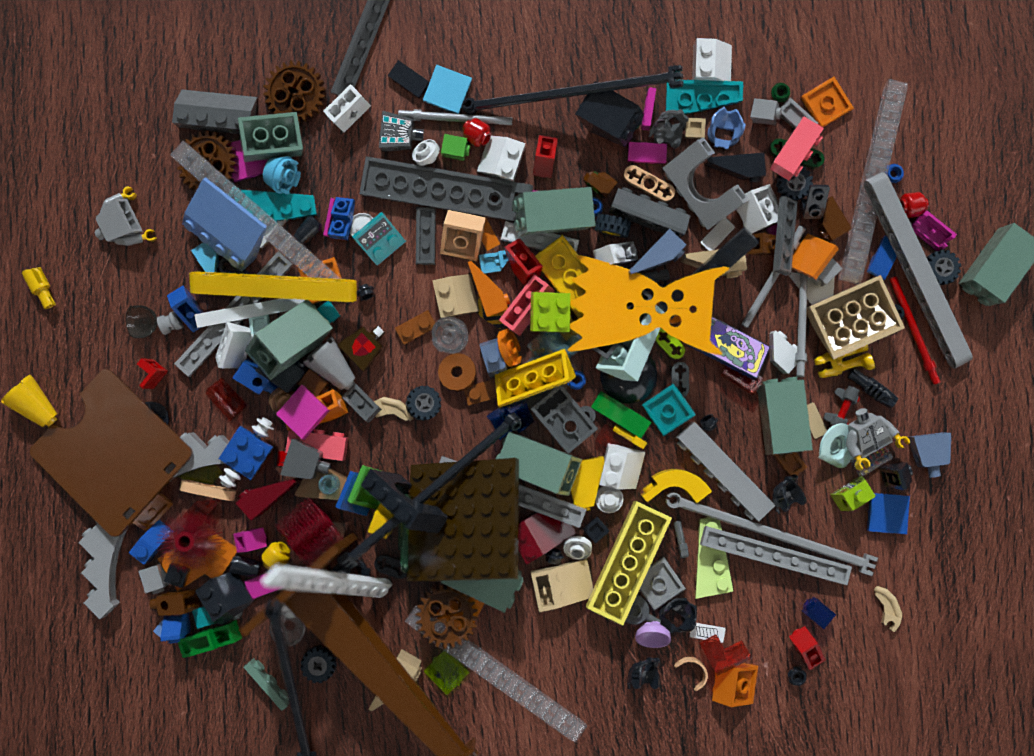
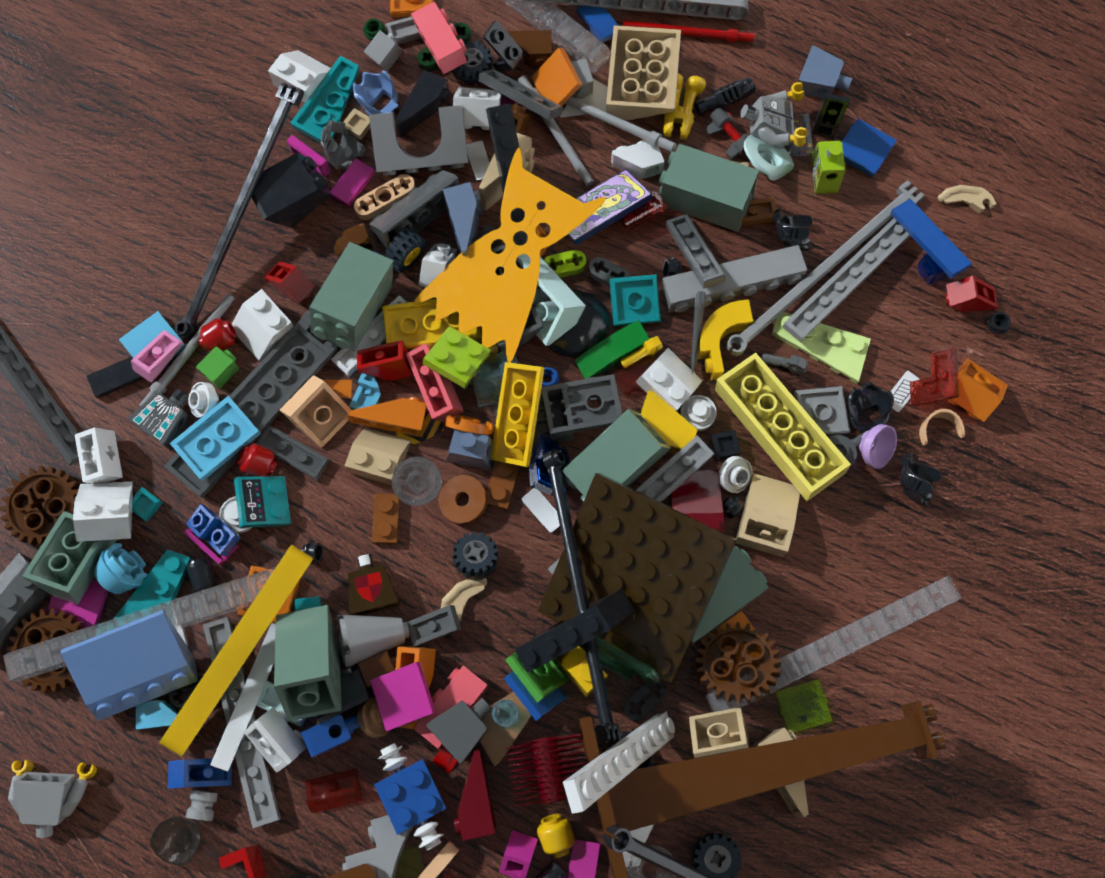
camera: 60 degrees left, 15 degrees down
(312, 138) = (103, 511): none -> white slope
(335, 158) = (145, 504): none -> teal tile
(393, 628) = (718, 732): none -> tan slope
(402, 180) = (215, 438): none -> medium azure plate
(404, 217) = (256, 461): none -> red head
(439, 99) = (156, 355): none -> bright pink slope
(481, 429) = (542, 509): none -> white sticker
(679, 462) = (699, 307): none -> dark grey bar
(729, 433) = (695, 251): none -> dark grey tile
(833, 598) = (931, 238): none -> blue tile

